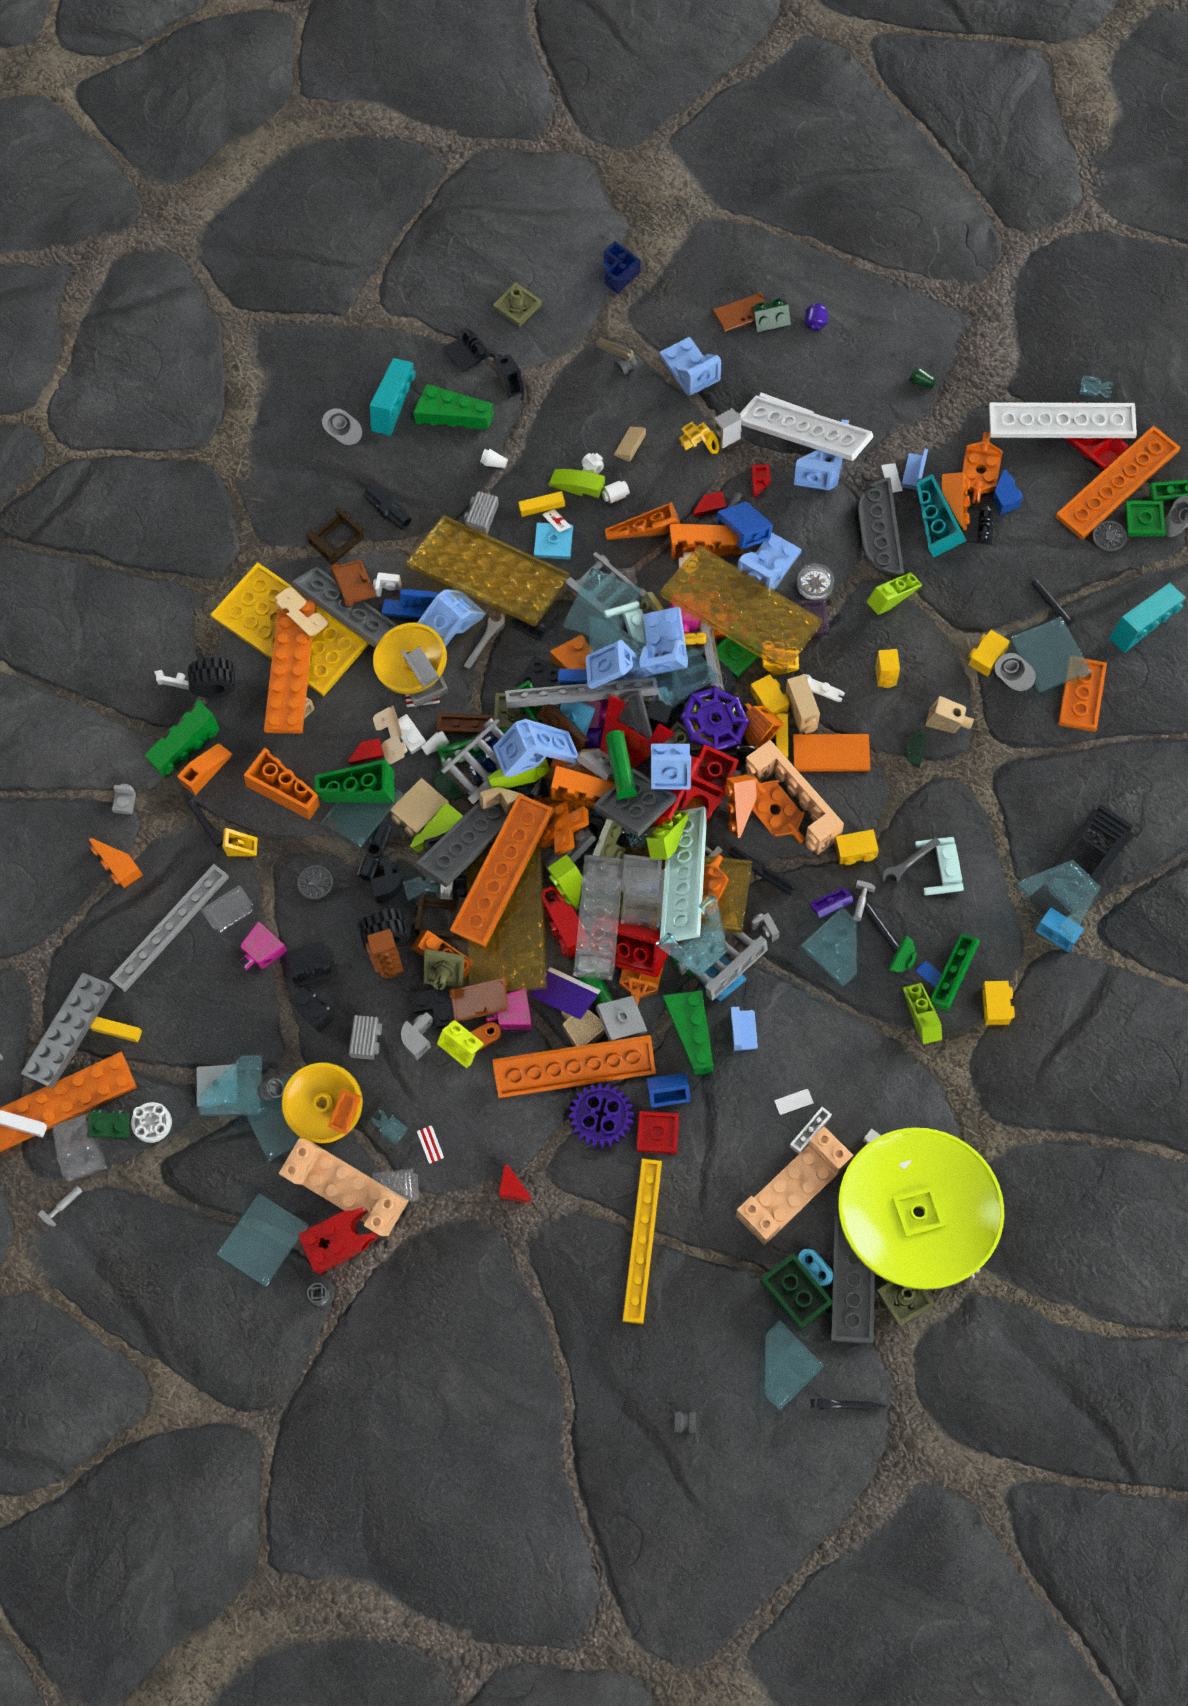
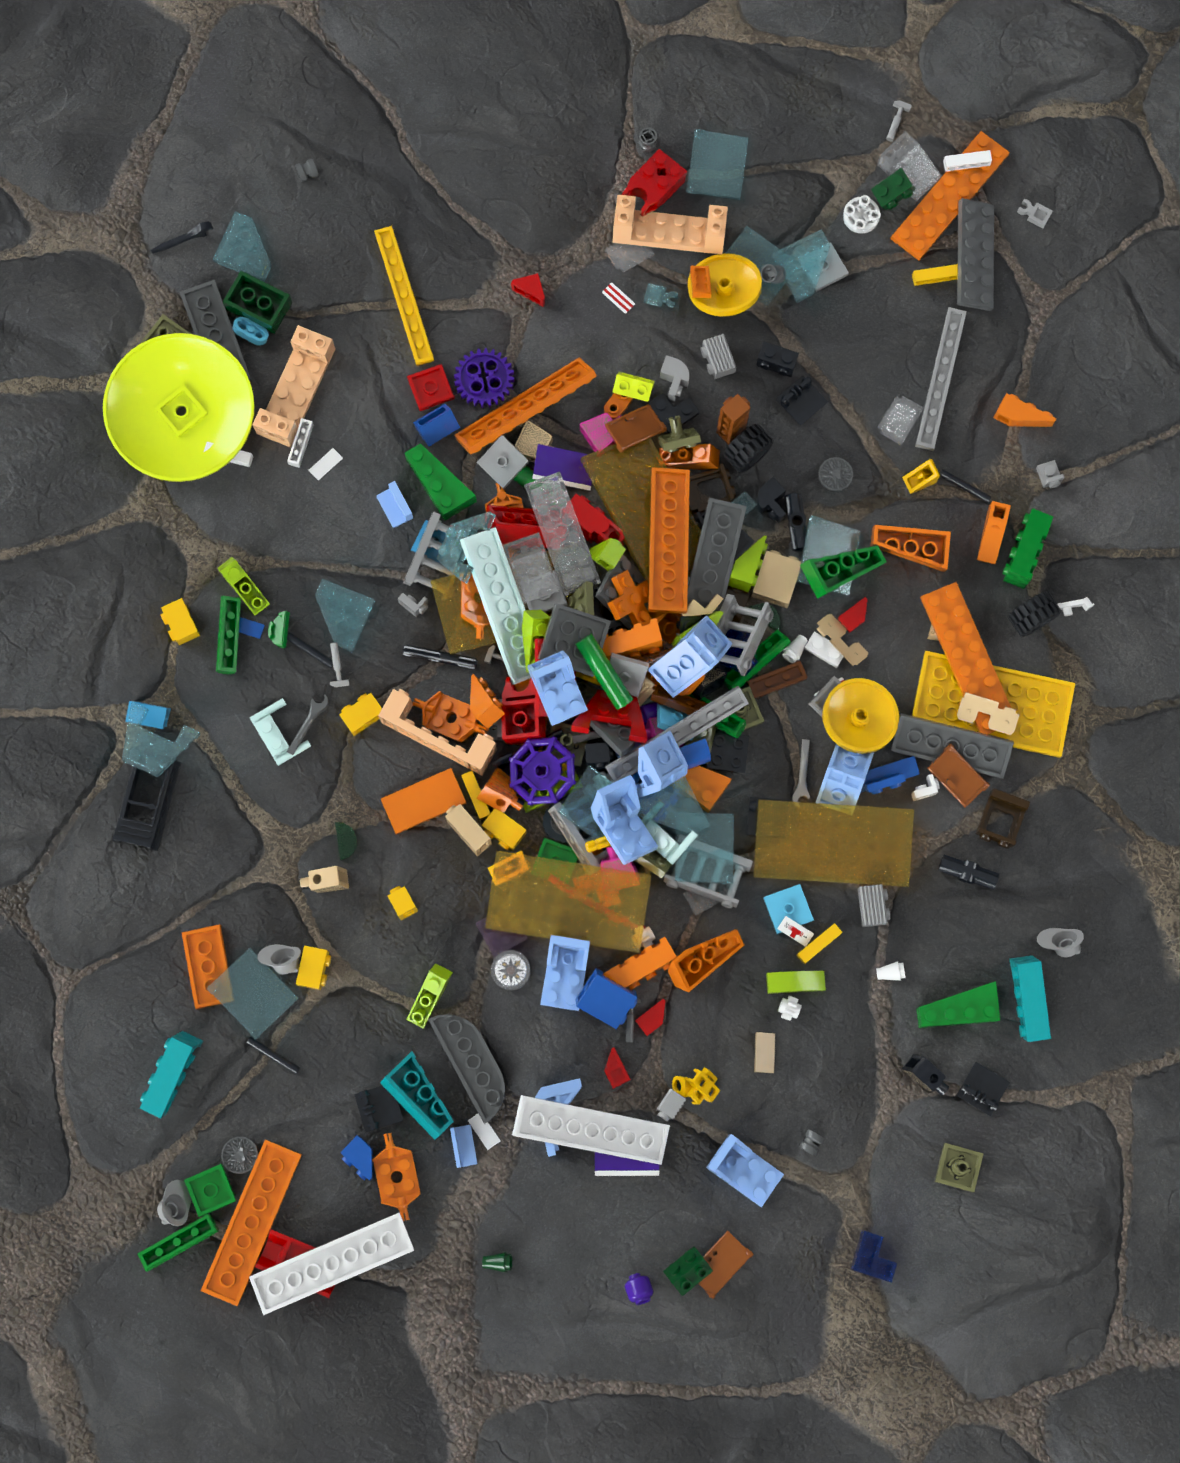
camera: 150 degrees right, 10 degrees up
(261, 948) = (850, 394): dark pink torso -> none
(421, 666) = (844, 703): light grey panel -> none
(615, 349) = (829, 1151): dark tan axle -> none
(615, 491) = (752, 987): white brick -> none
(825, 689) = (460, 863): white piece -> none
(831, 902) = (363, 651): dark purple plate -> none
(955, 492) = (410, 1128): orange slope -> none
(1091, 387) = (318, 1330): clear light blue plate -> none

